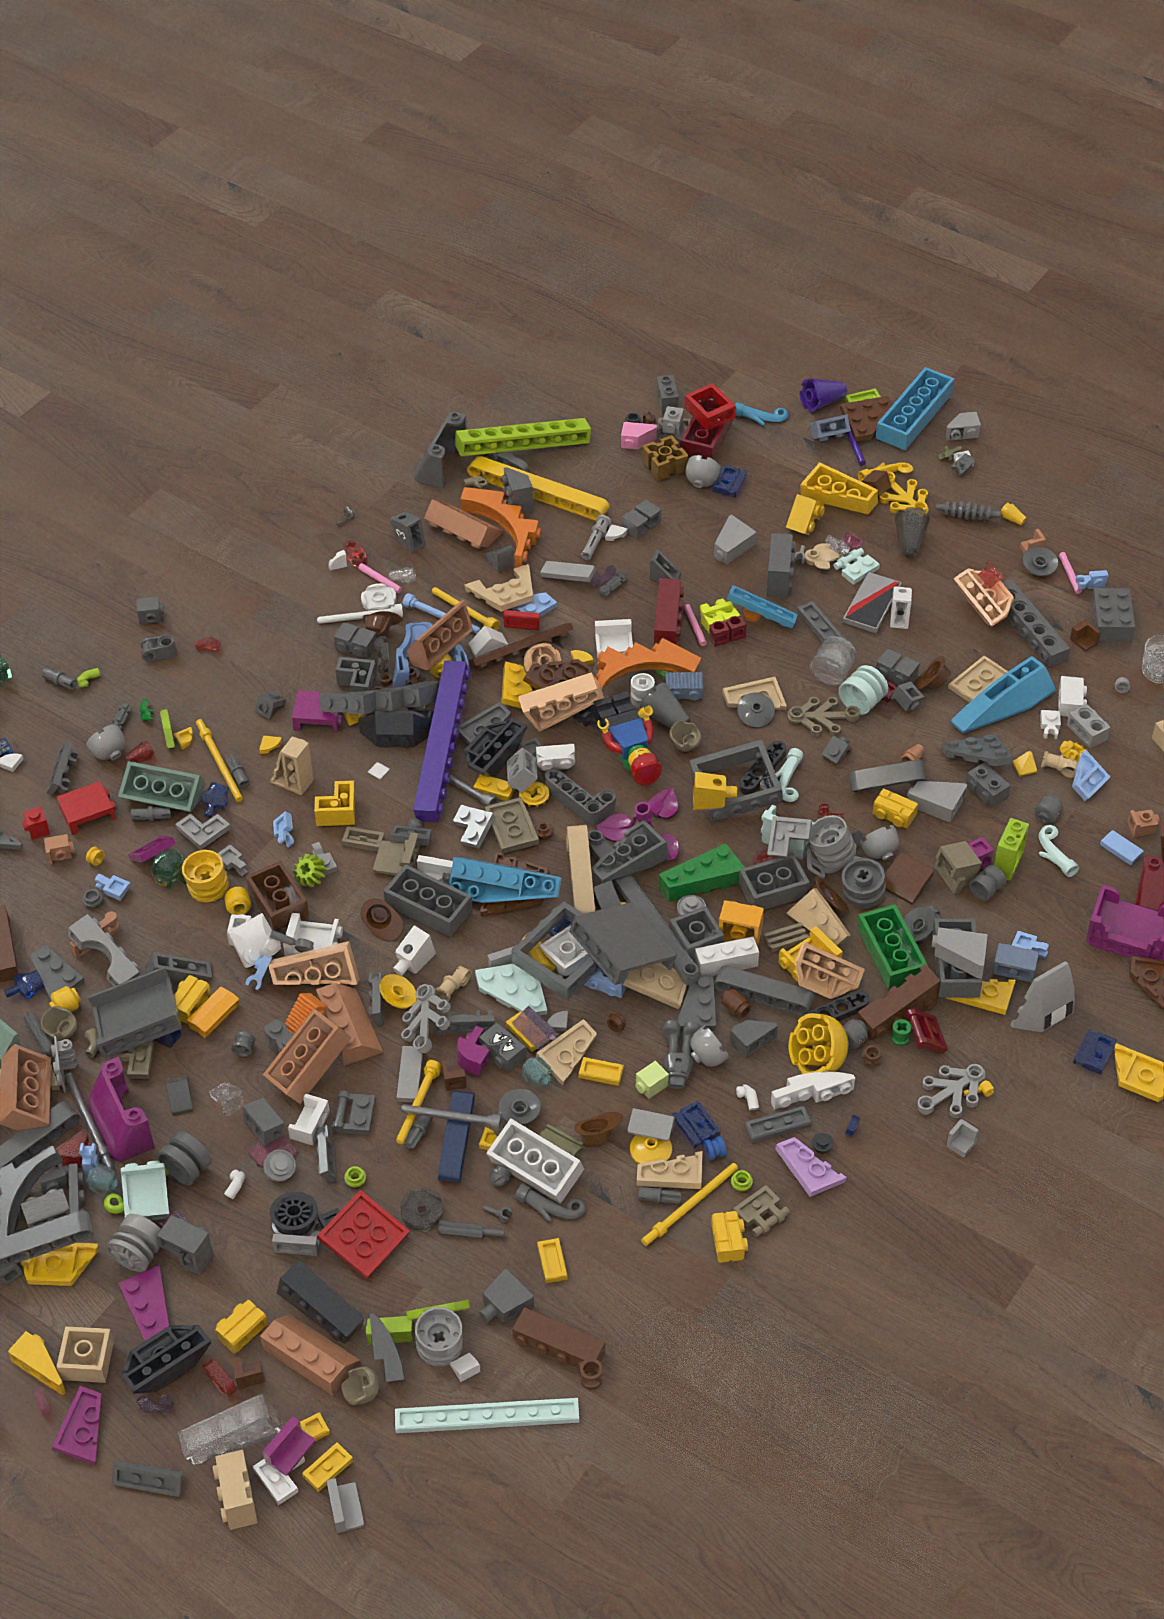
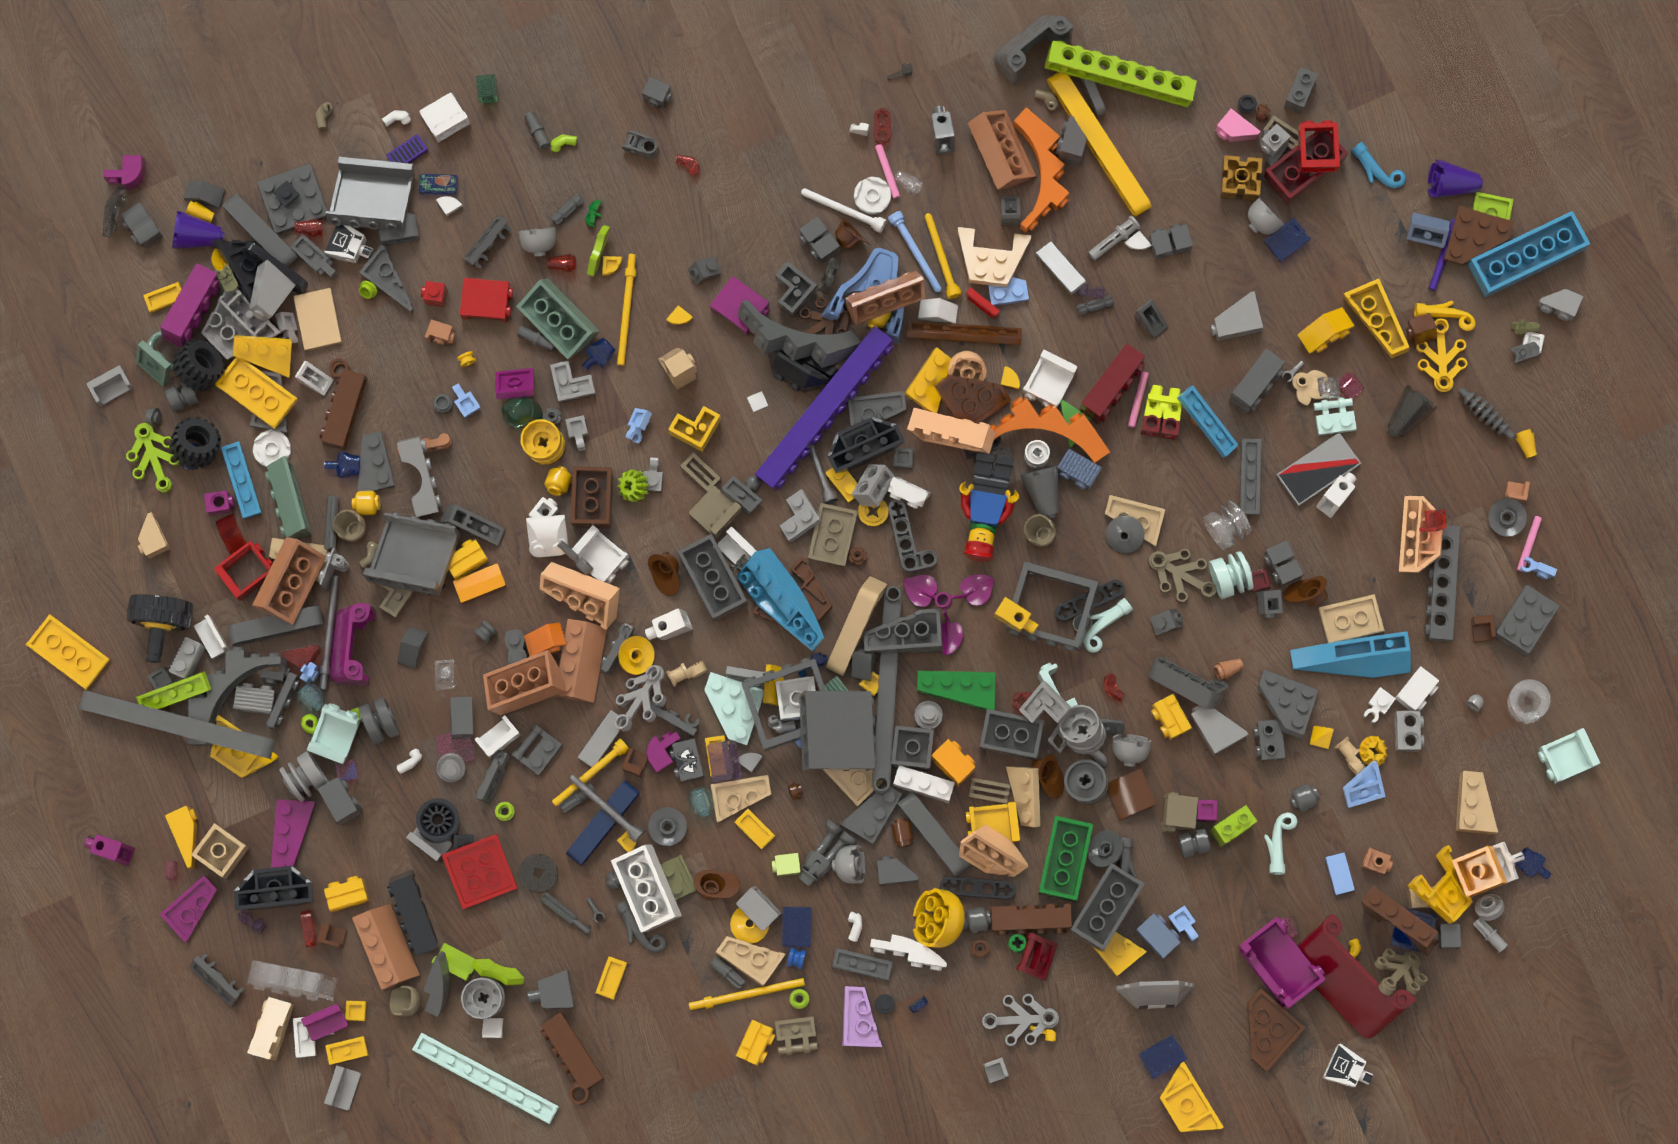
camera: 35 degrees right, 30 degrees up
(237, 771) = (634, 333): dark grey axle -> none
(261, 966) = (539, 566): light blue plate -> none
(961, 949) = (1106, 913): light grey slope -> none

